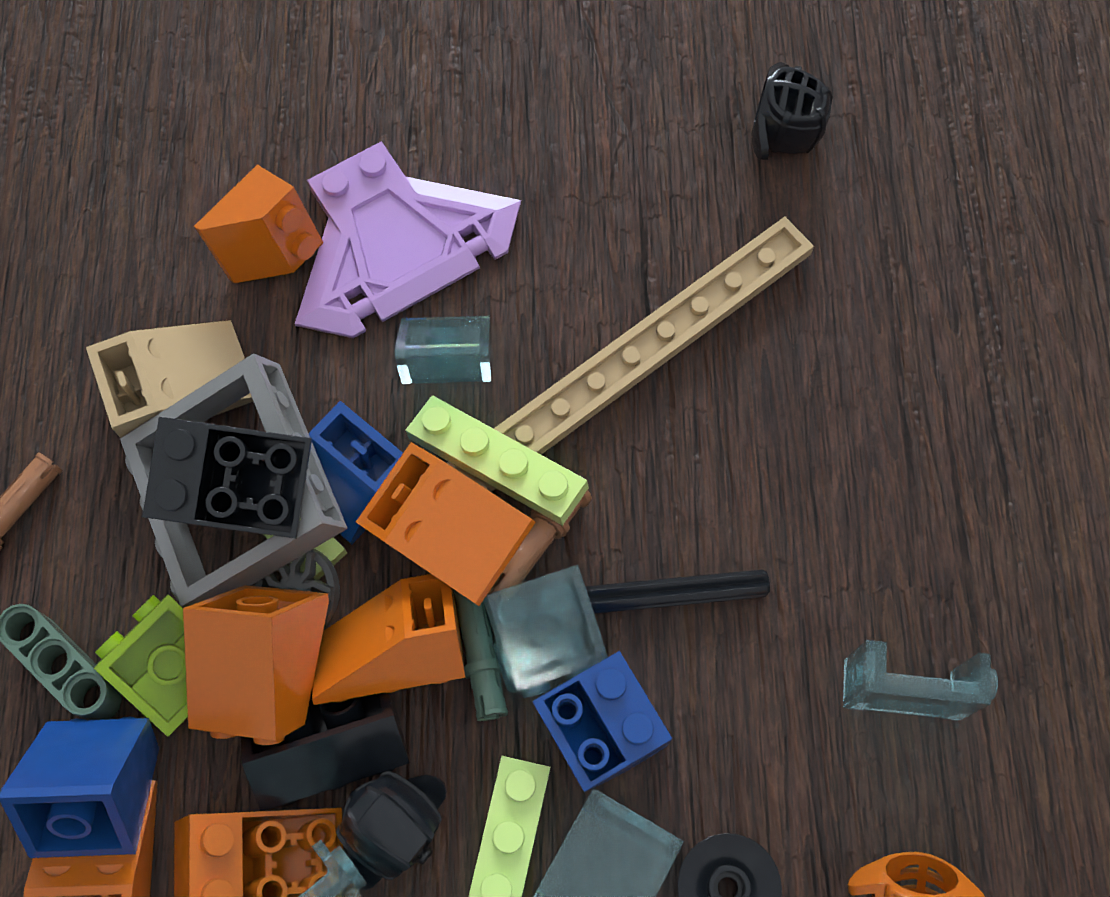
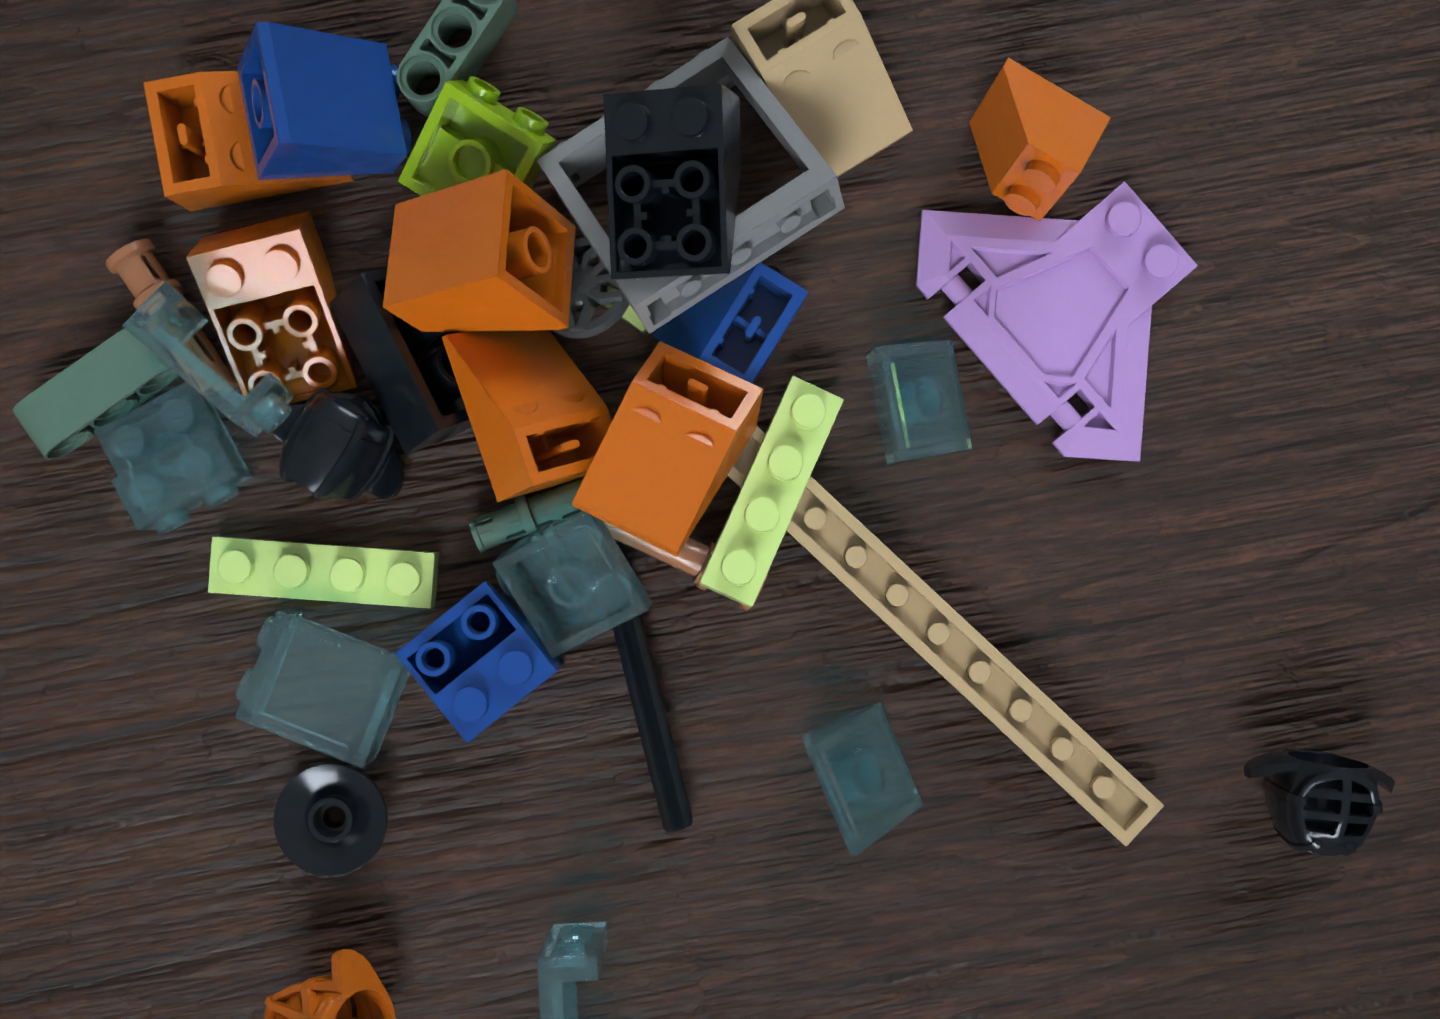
camera: 80 degrees right, 20 degrees up
(740, 433) = (862, 775): none -> clear light blue slope

